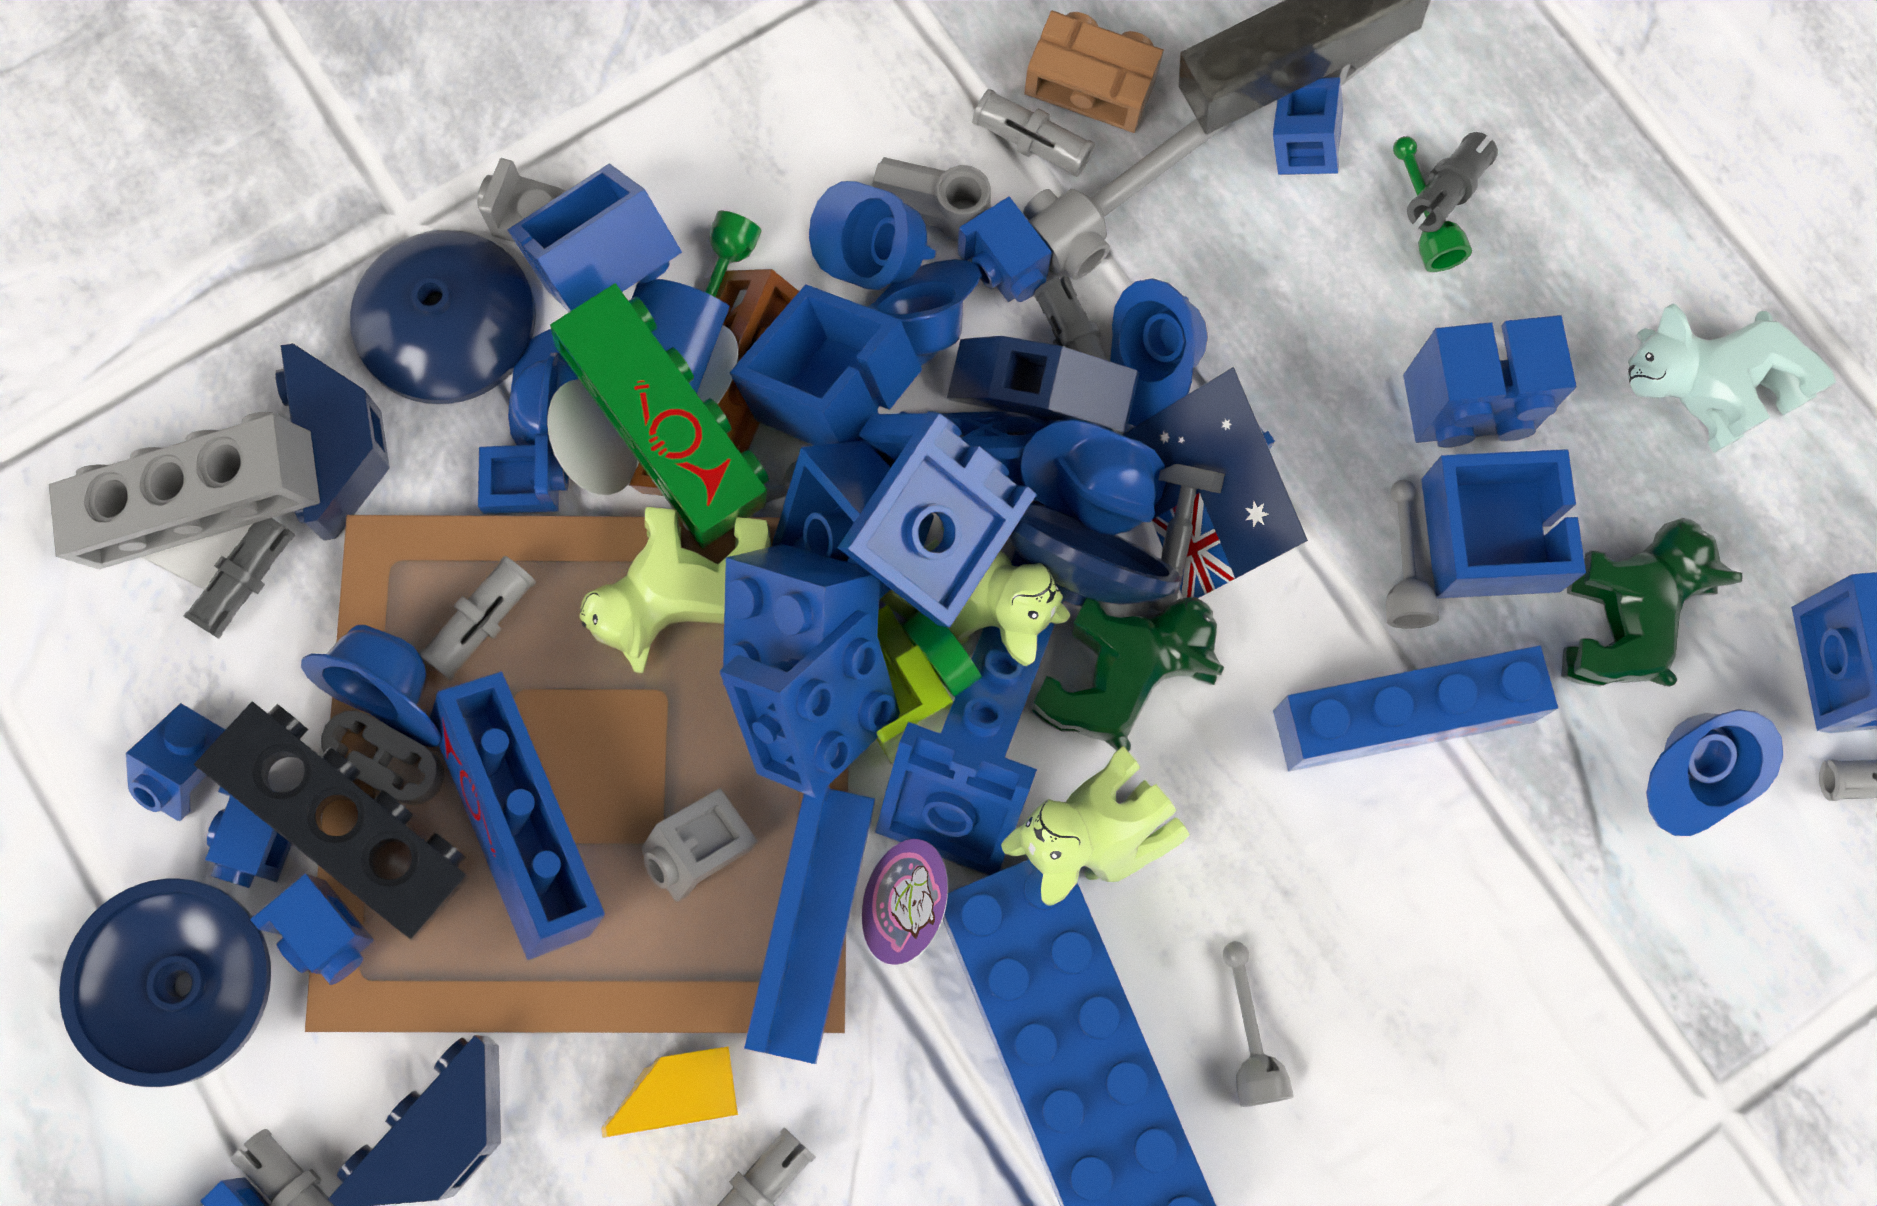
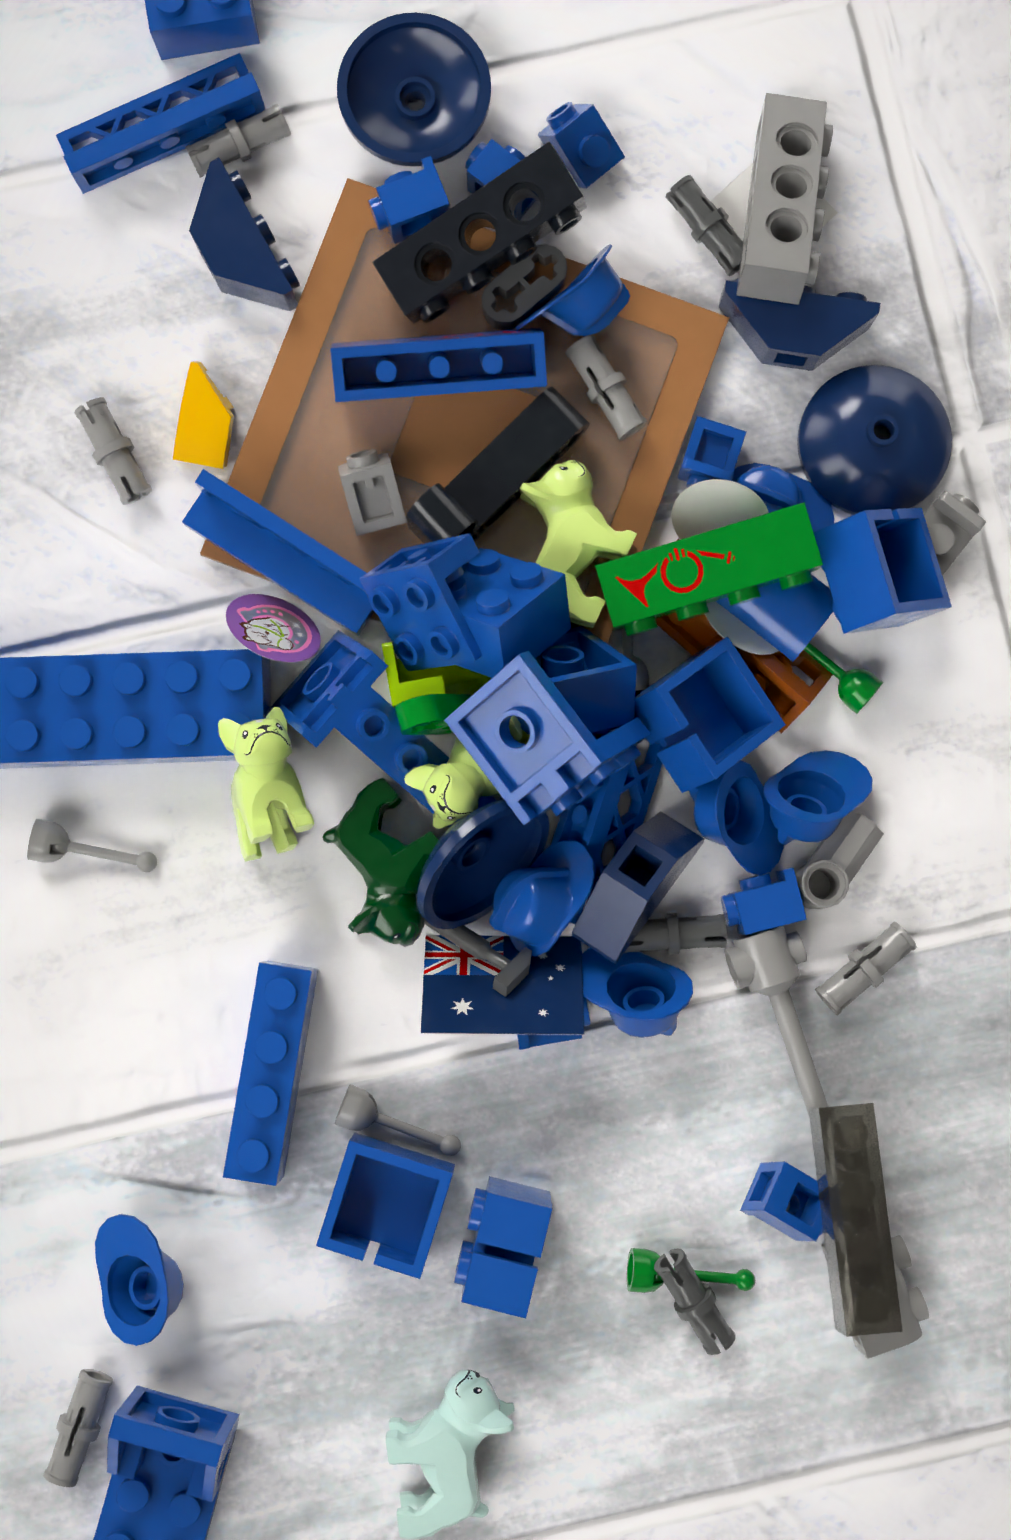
camera: 115 degrees right, 10 degrees up
(627, 699) = (495, 475): none -> black beam
(1093, 70) = (905, 1041): medium nougat brick -> none
(1644, 605) = (284, 1293): dark green animal -> none

